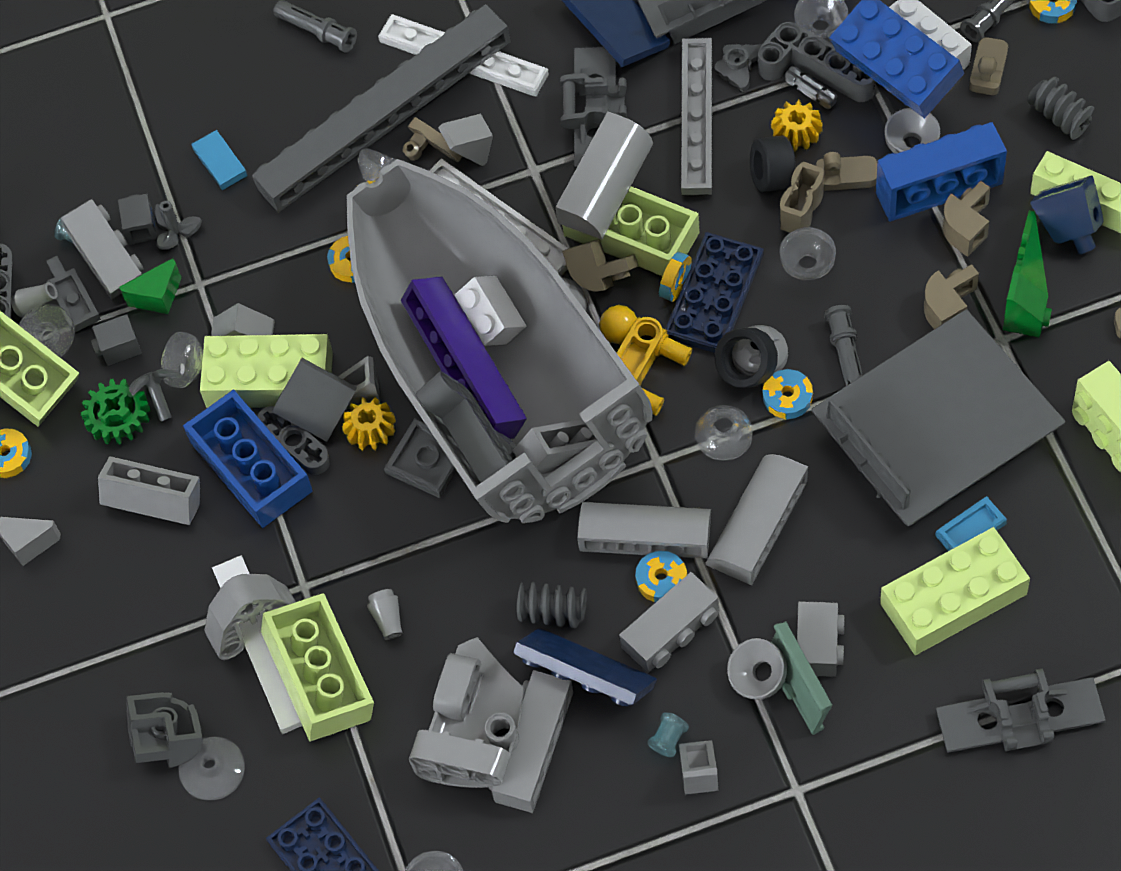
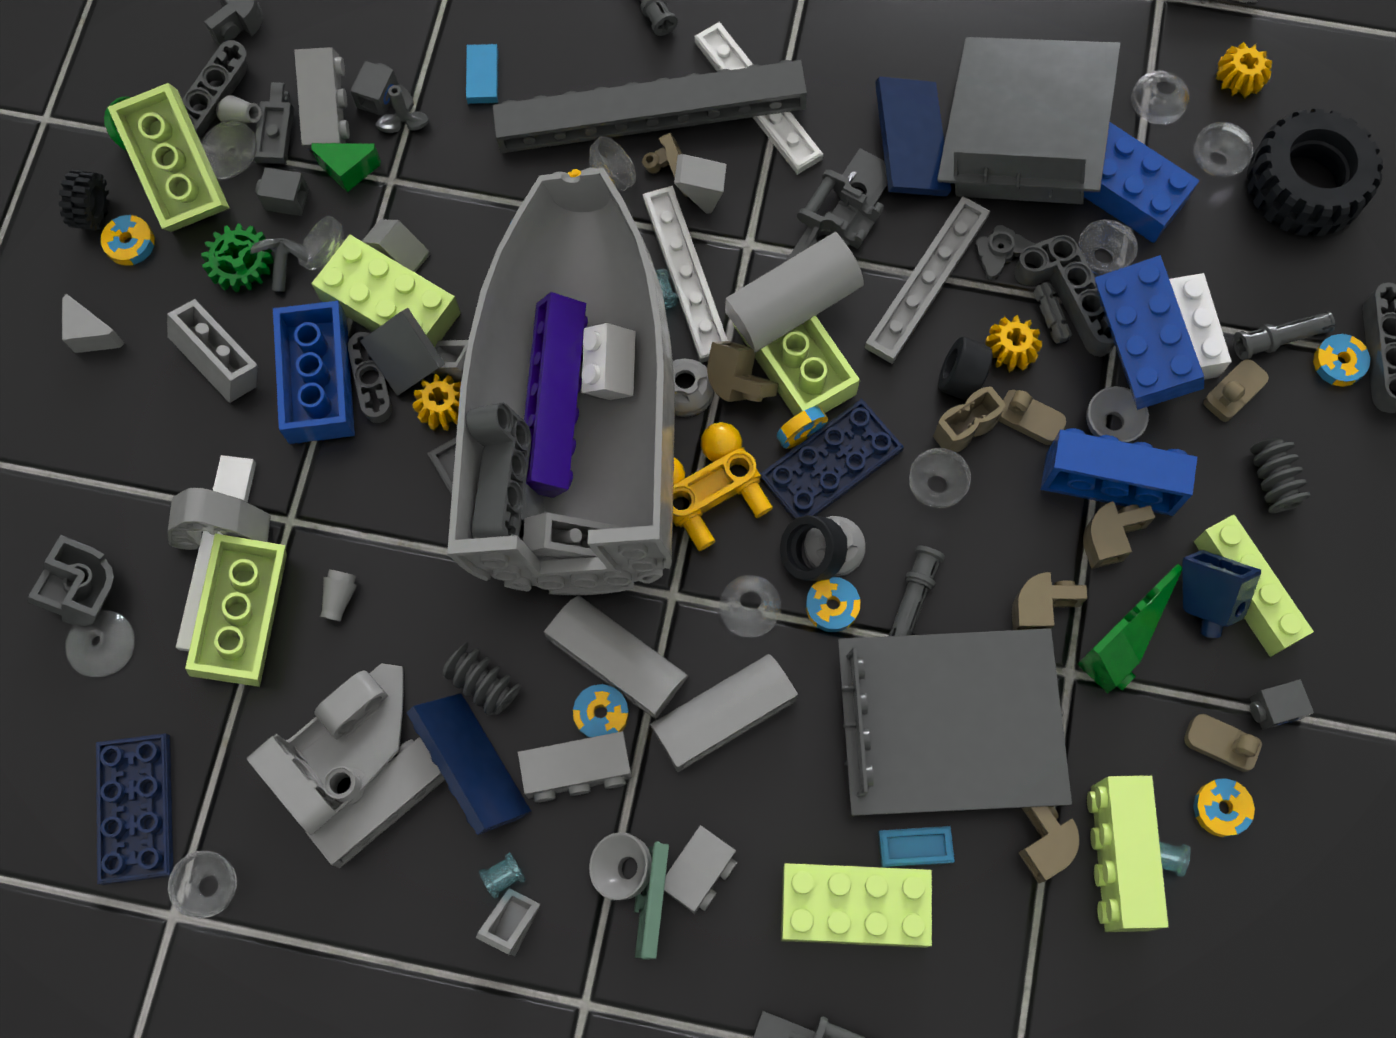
camera: 25 degrees right, 10 degrees up
(1072, 462) = (1055, 847): none -> dark tan brick

